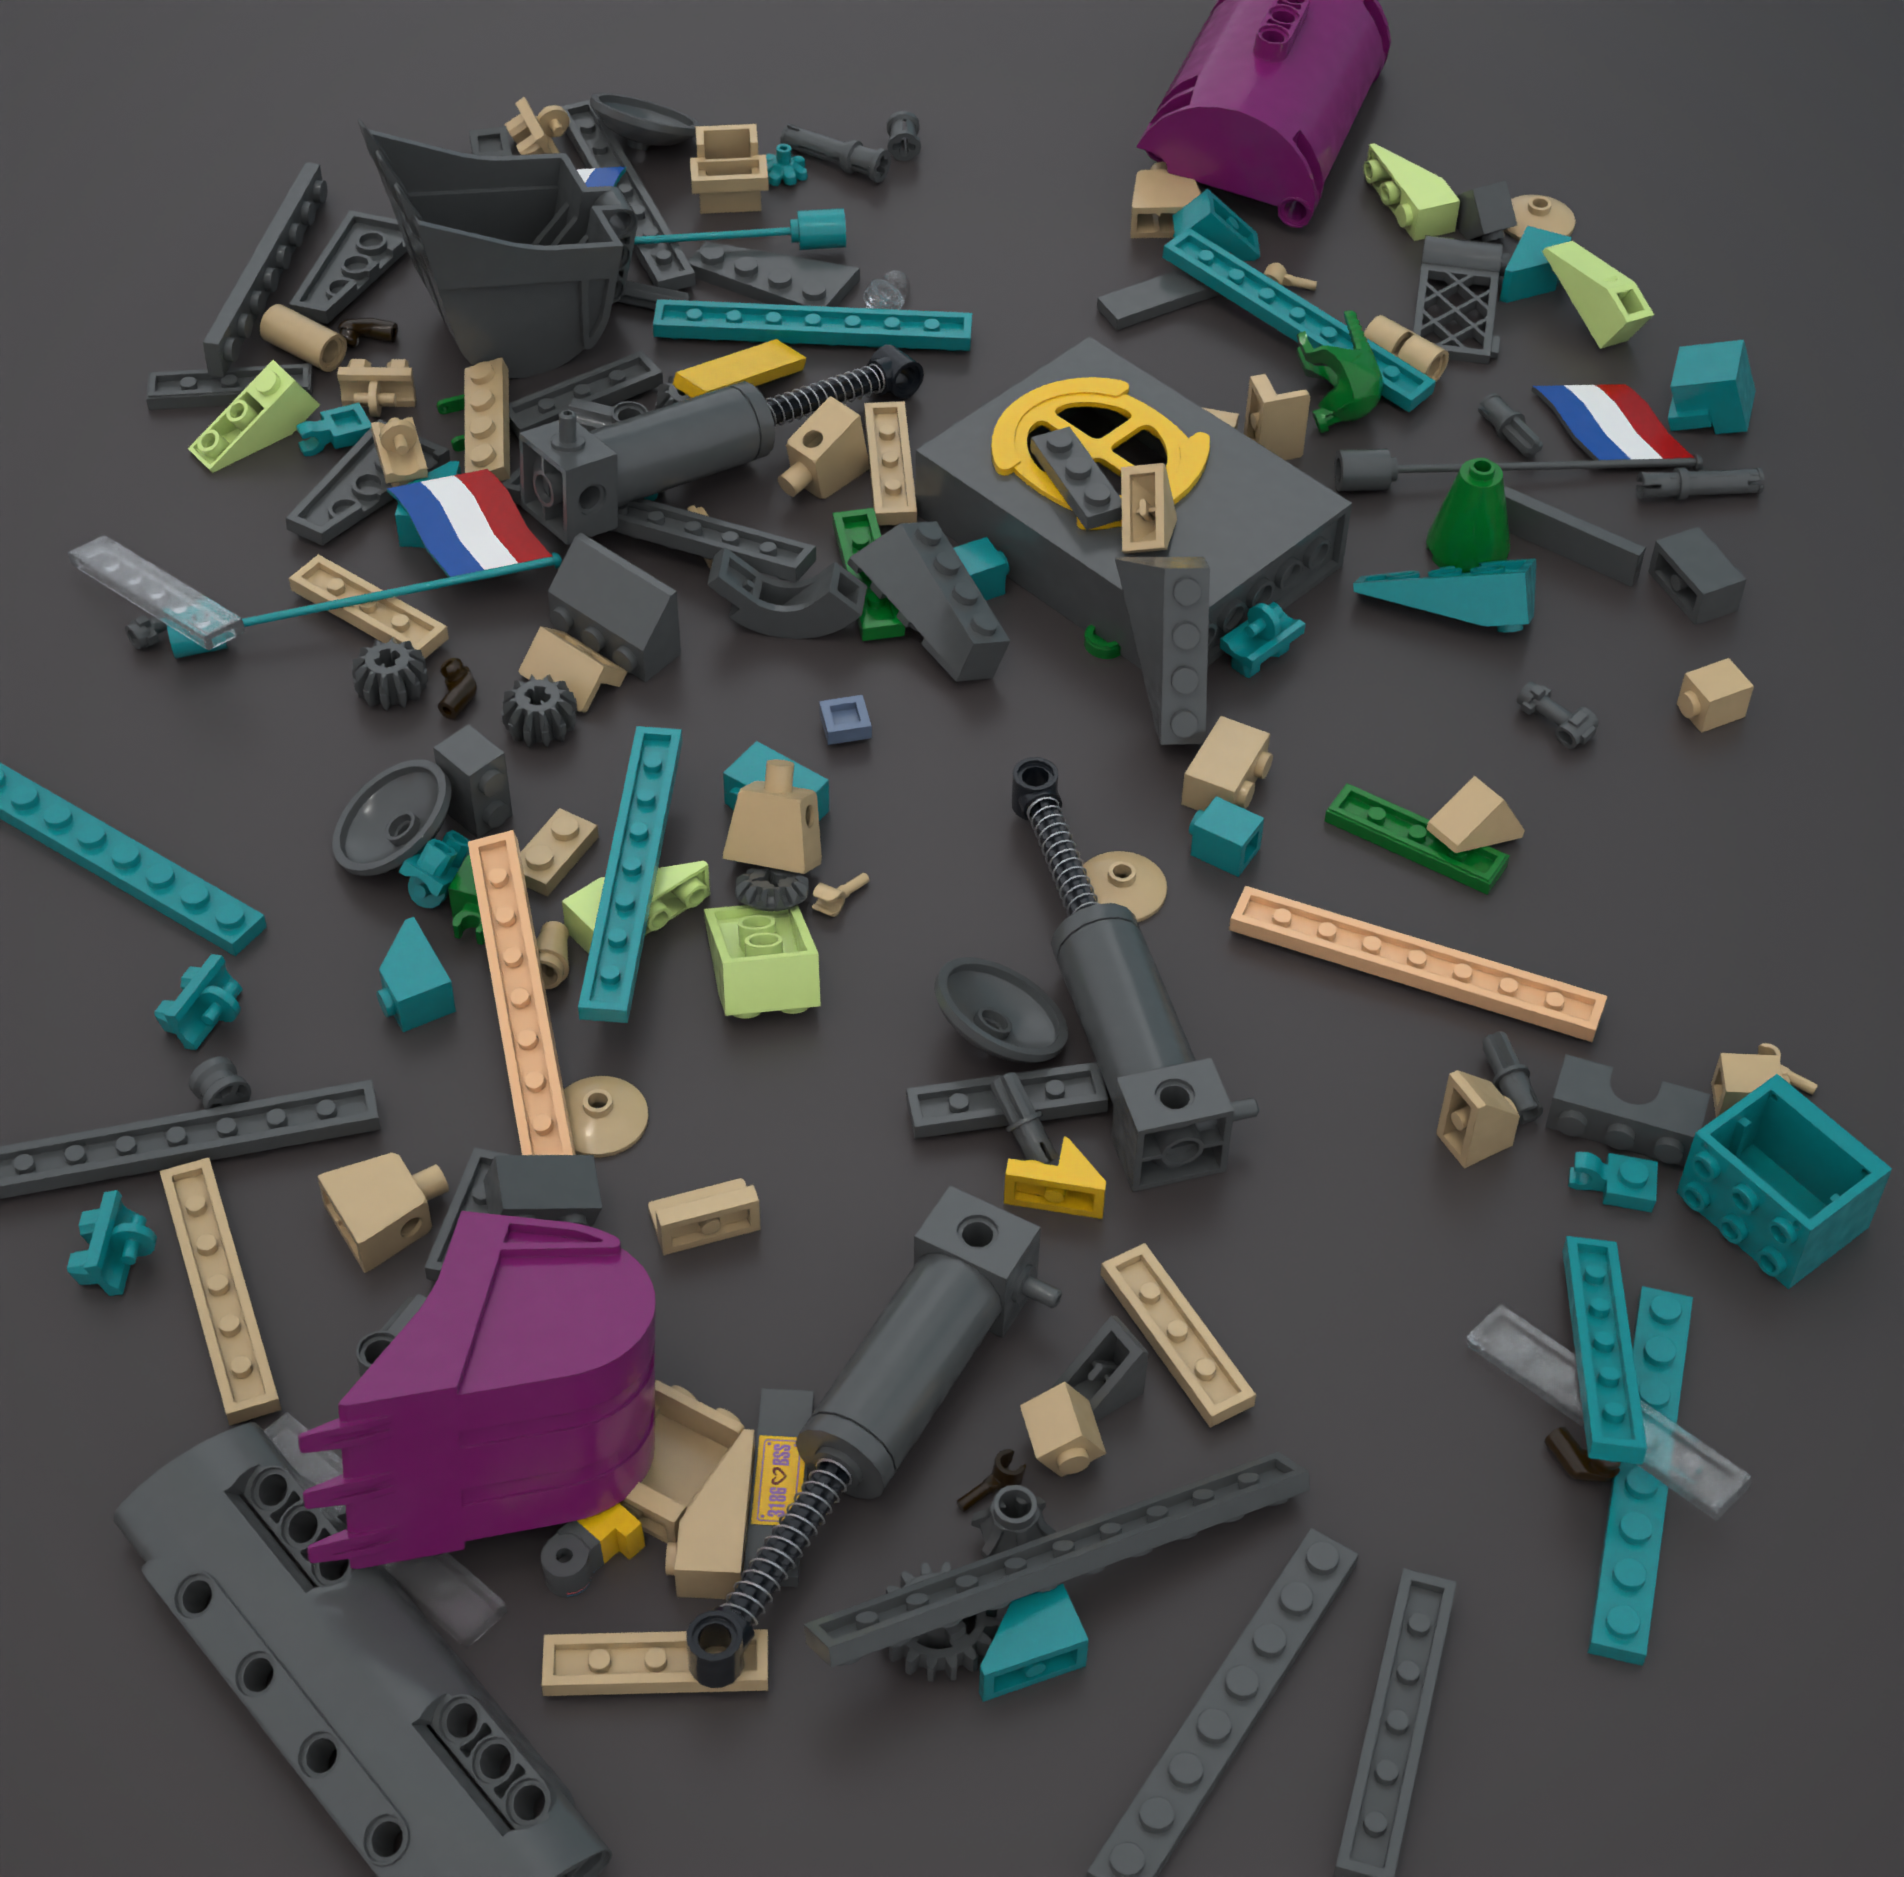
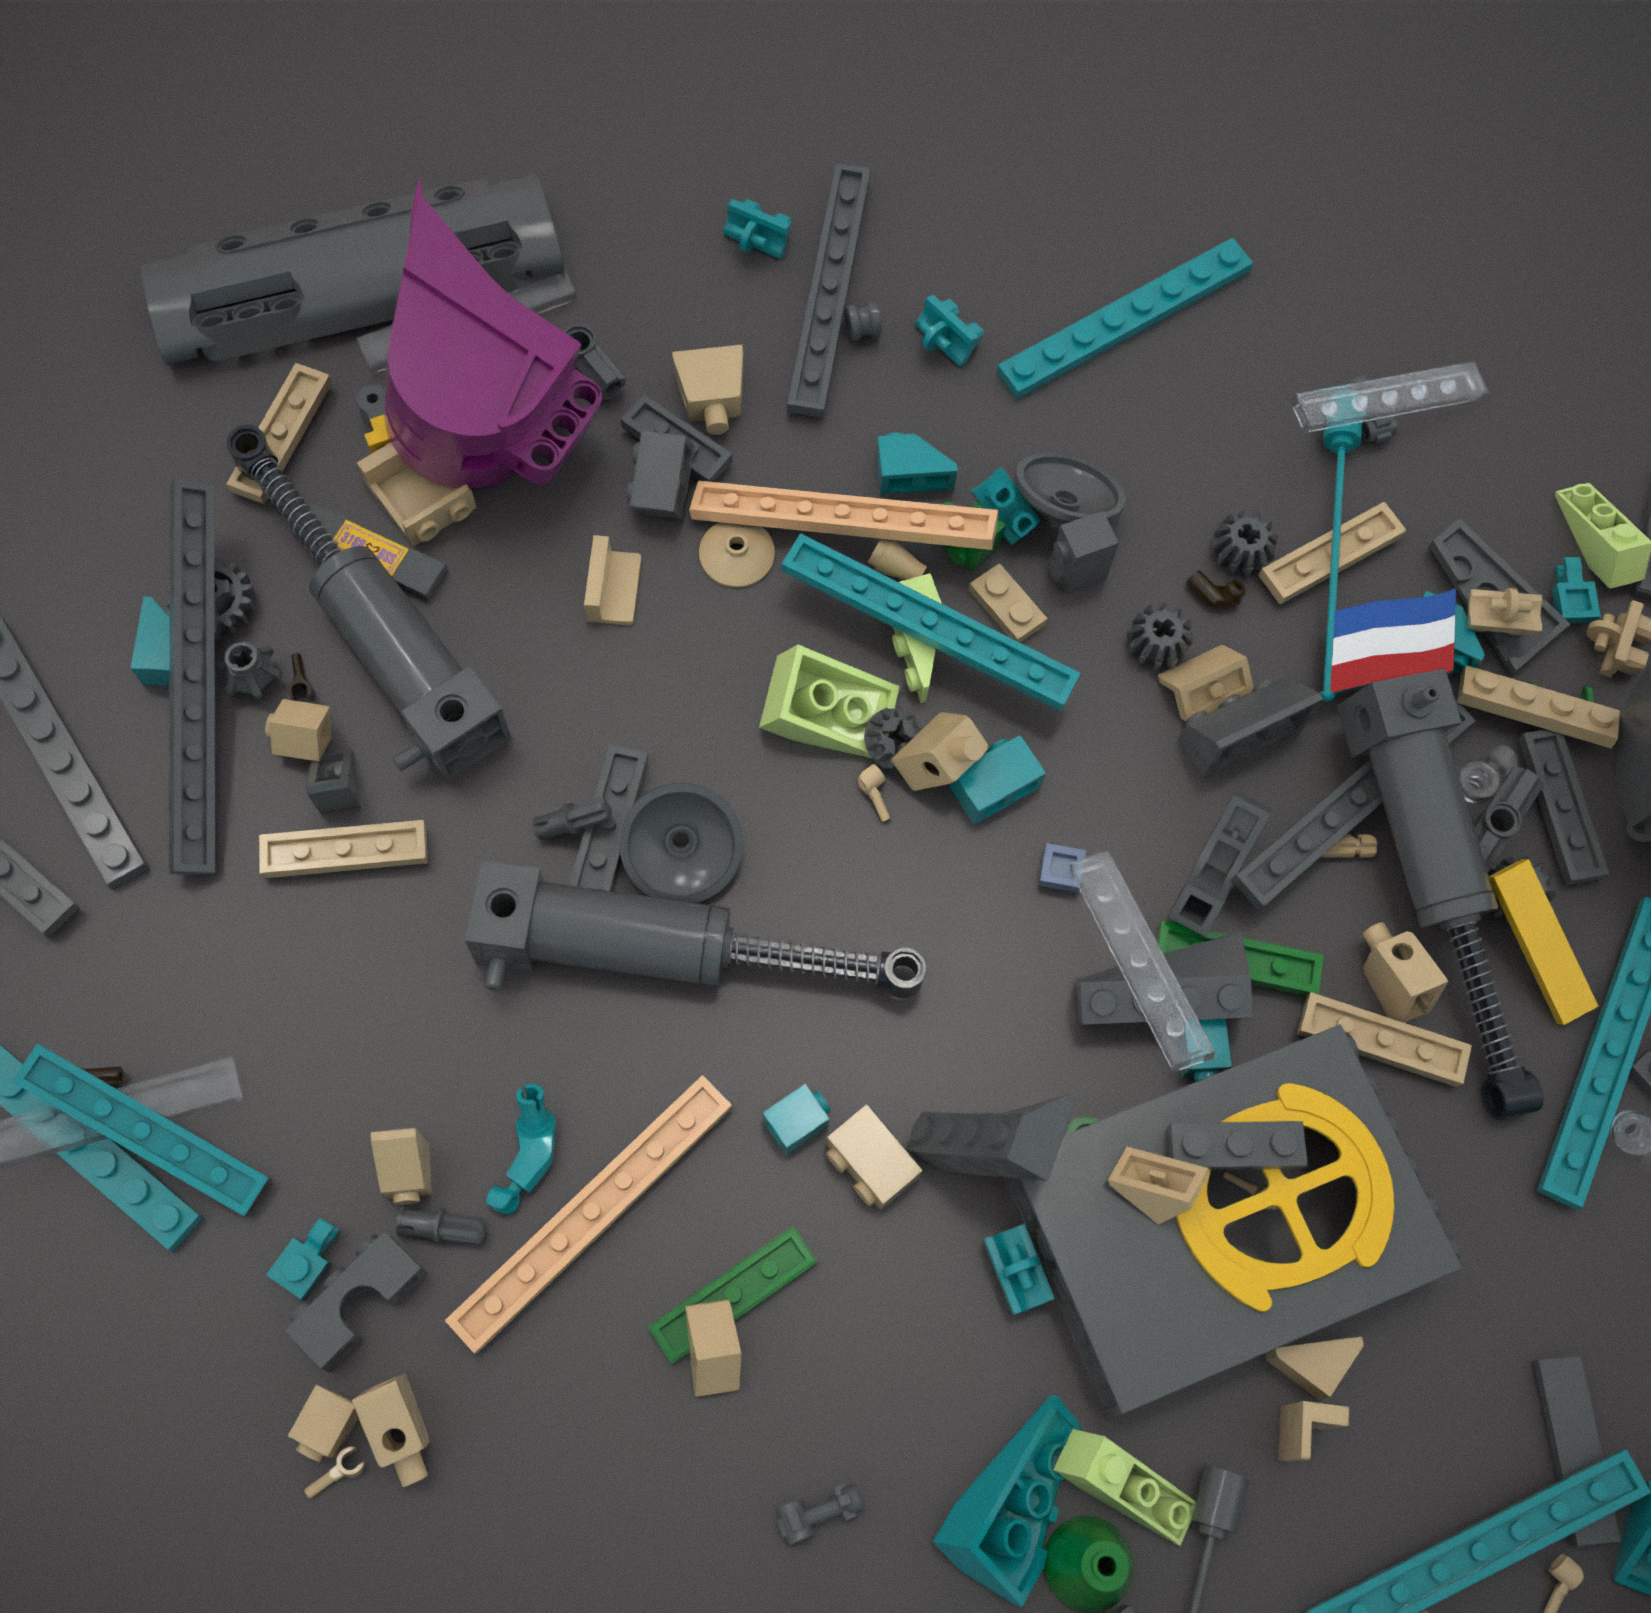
camera: 110 degrees right, 20 degrees up
(220, 1292) = (692, 279): tan plate -> none
(715, 1528) = (341, 488): tan slope -> none
(926, 603) = (1142, 962): none -> clear tile
(1066, 1188) = (505, 831): yellow slope -> none
(1128, 881) = (791, 1036): tan dish -> none
(1350, 371) = (1342, 1548): green piece -> none
(1393, 530) = (1125, 1484): none -> yellowish green slope
(1394, 1026) = (536, 1142): none -> teal arm
(1714, 1009) = (389, 1407): none -> tan torso
(1782, 1180) = (206, 1374): teal container -> none

